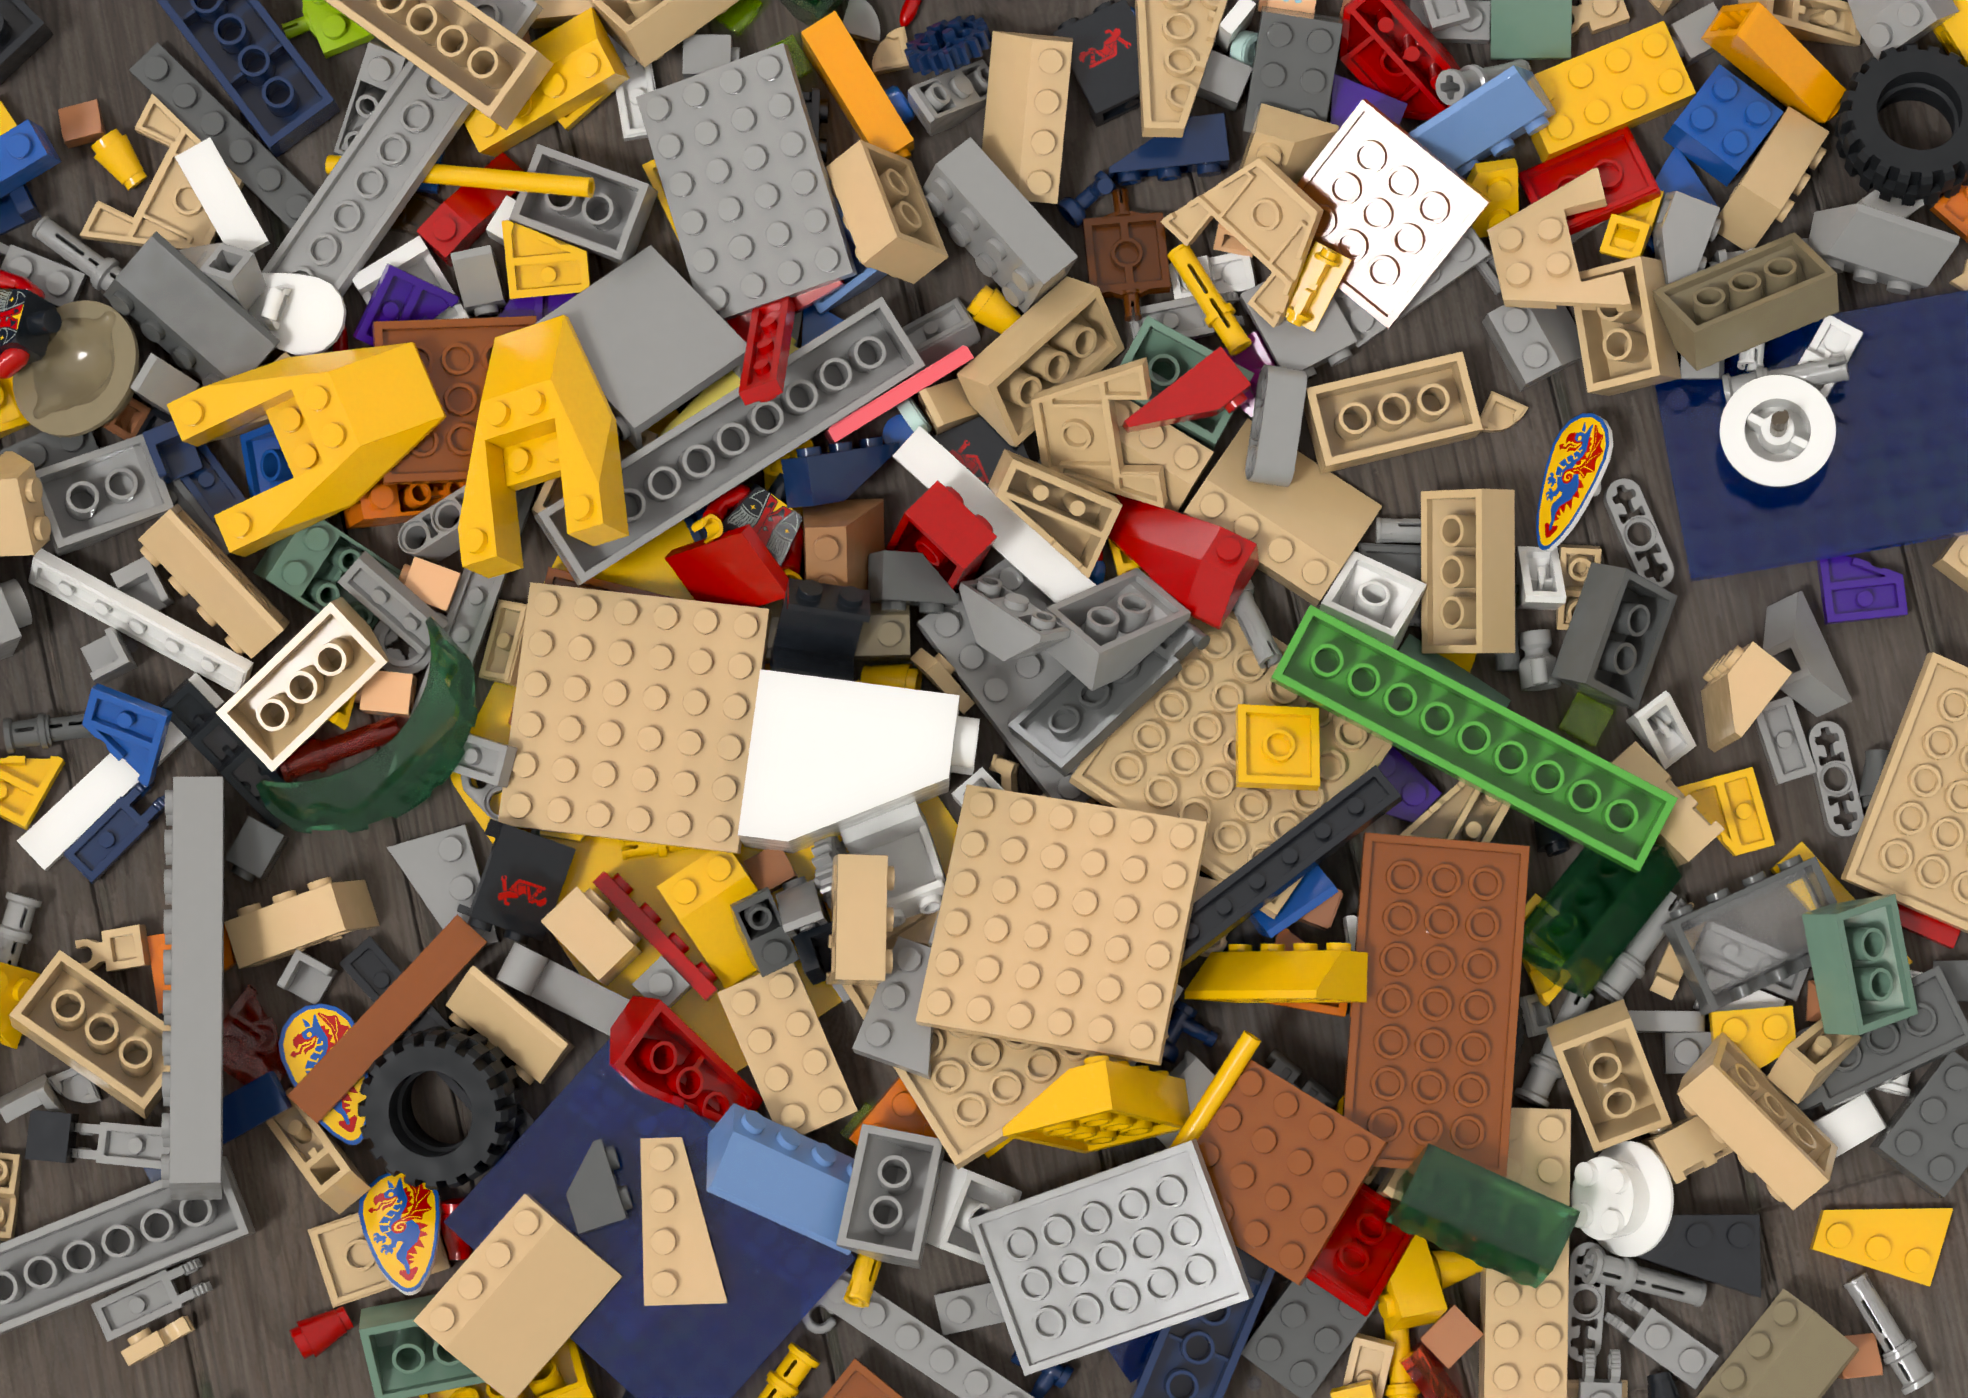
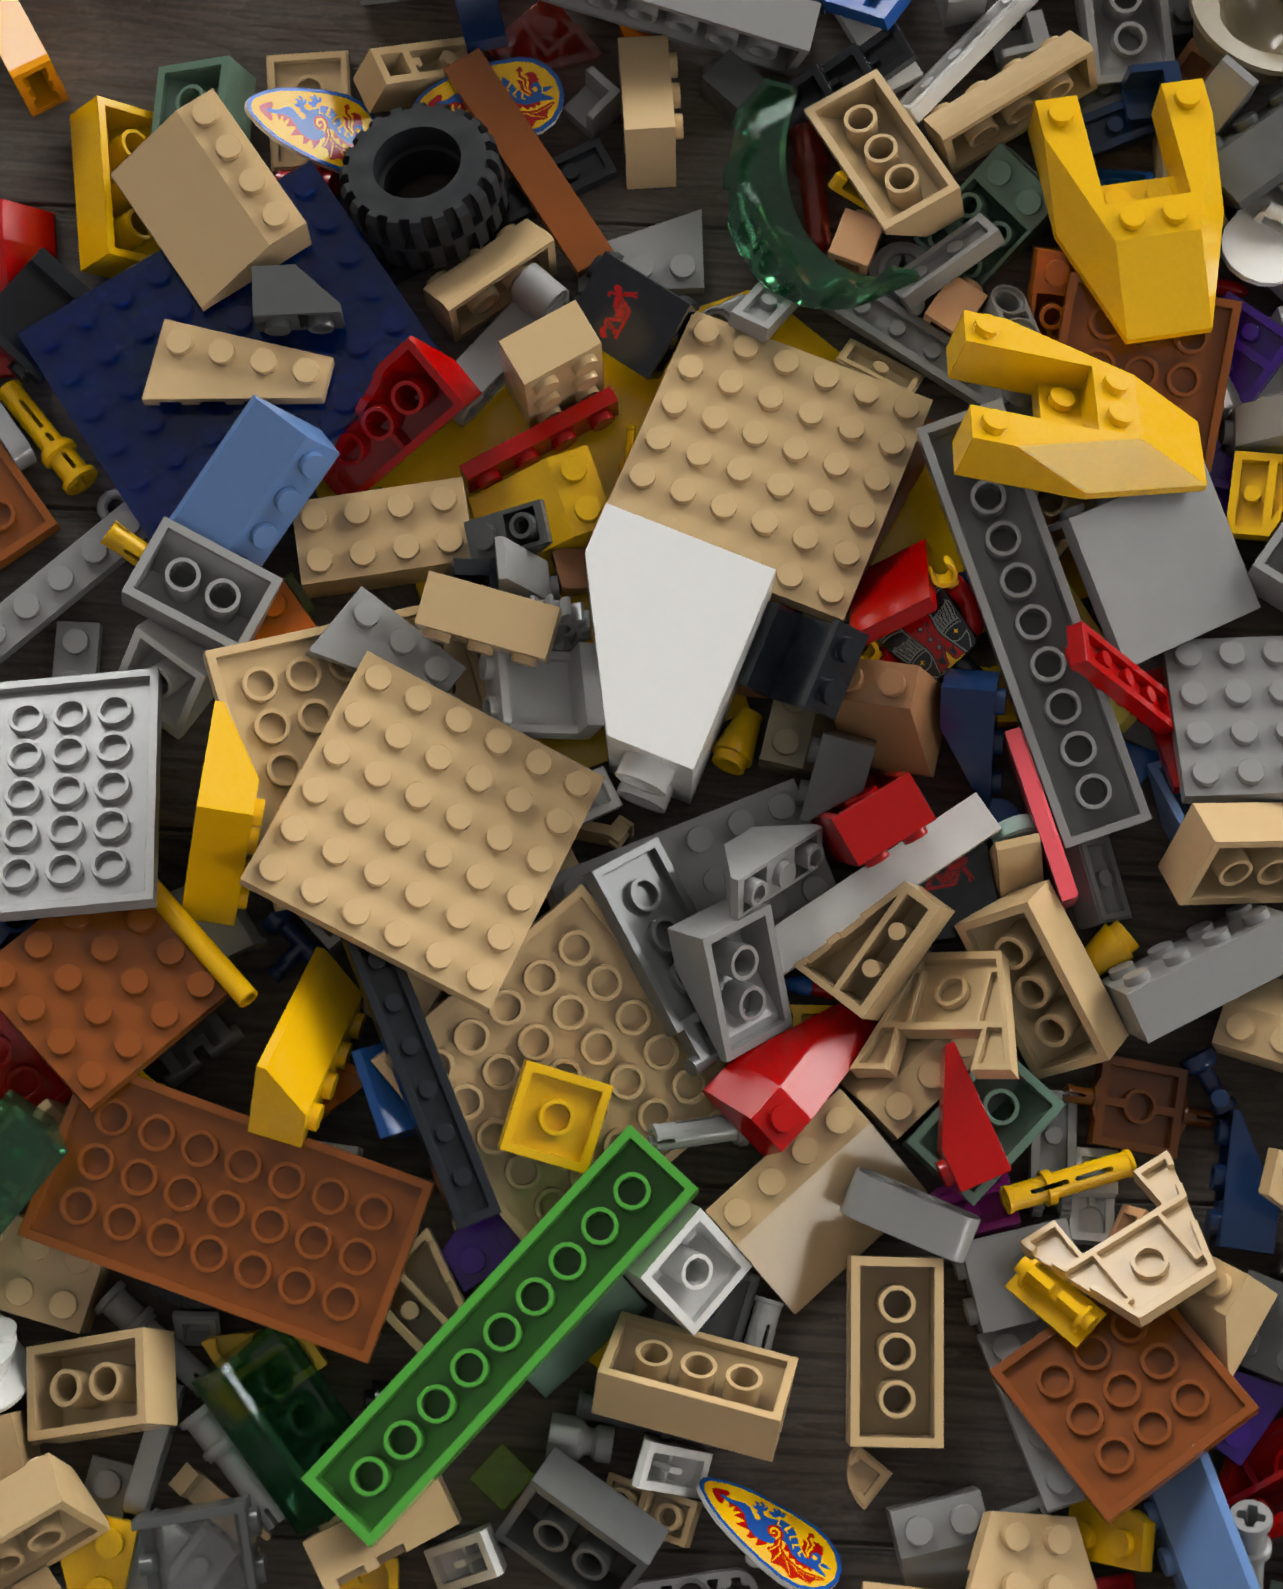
camera: 110 degrees right, 5 degrees down
(320, 1331) = (246, 37): red cone -> none
(662, 983) = (485, 426): light grey brick -> none
(939, 673) = (732, 785): tan plate -> none
(1324, 914) = (366, 1126): nougat slope -> none

